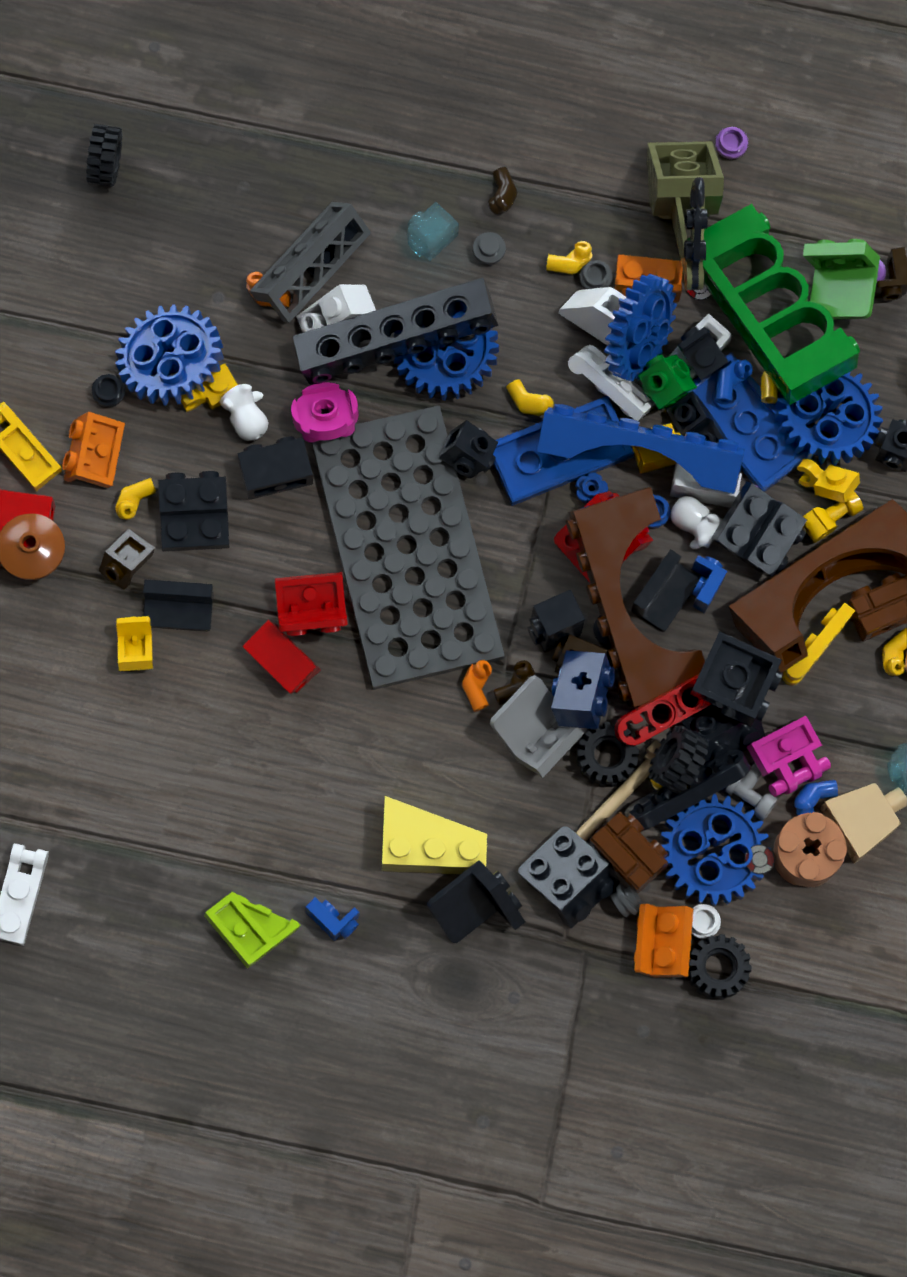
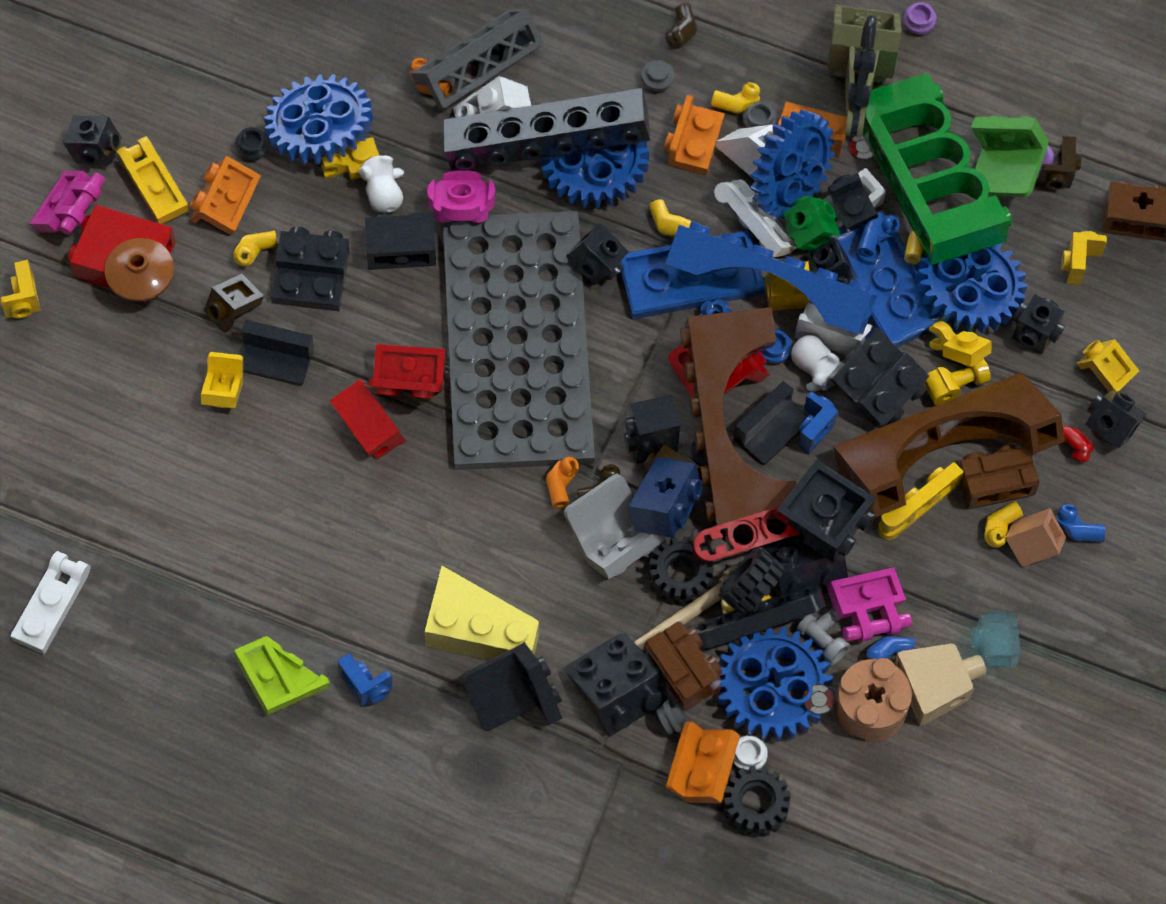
camera: 15 degrees right, 10 degrees down
(431, 231) = (603, 50): clear light blue brick -> none
(538, 307) = (694, 137): none -> orange bracket

